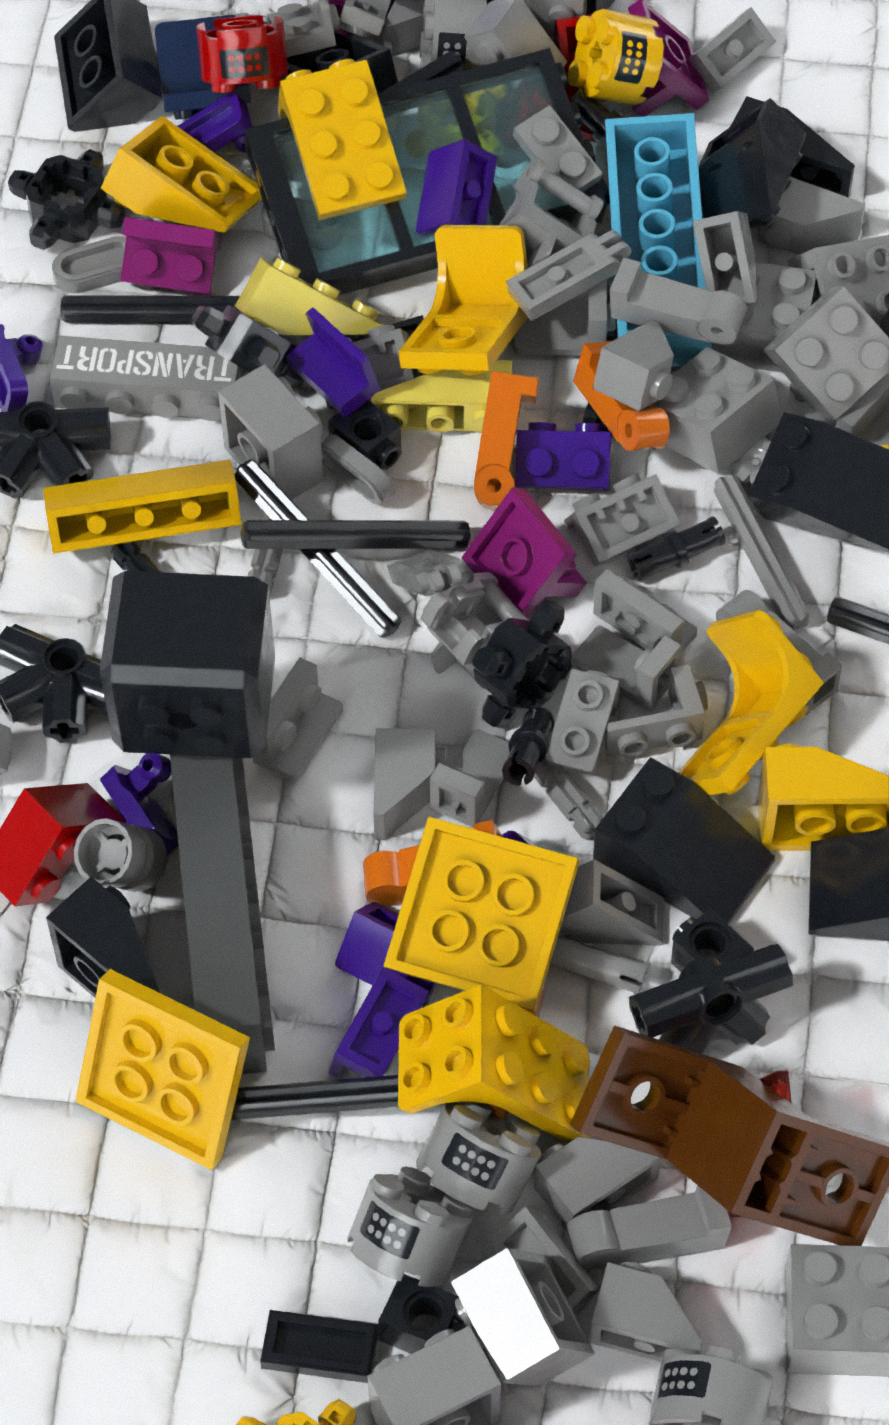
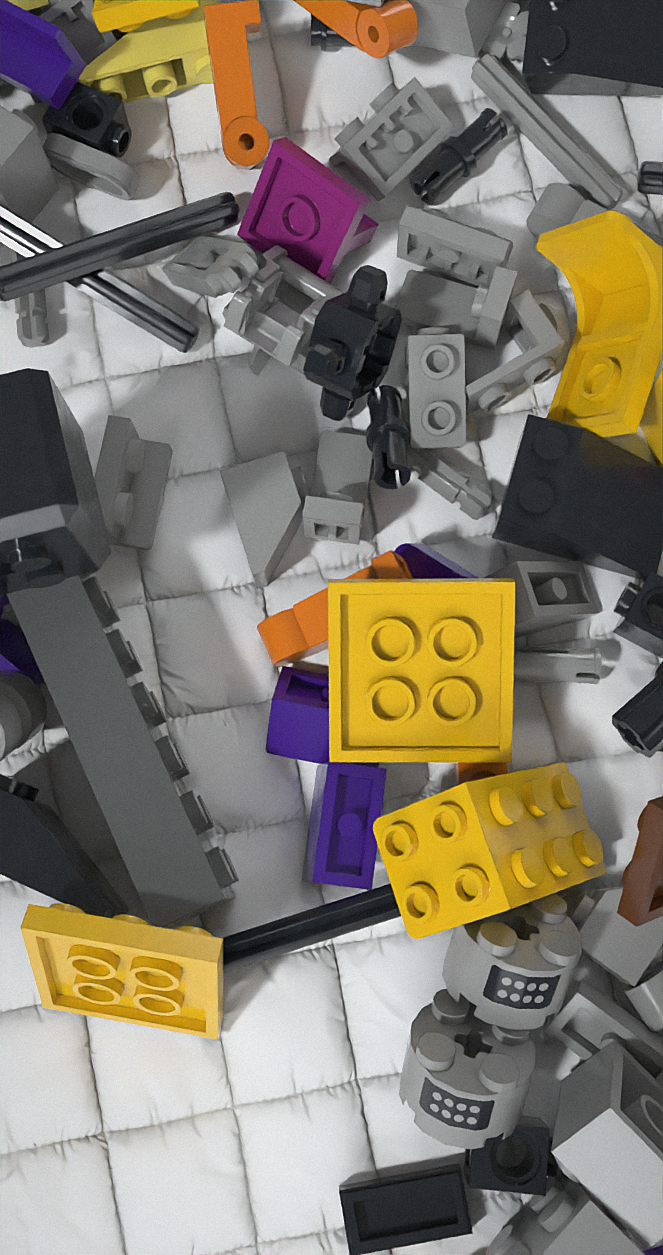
camera: 15 degrees left, 20 degrees up
(563, 457) = (306, 86): dark purple bracket -> none

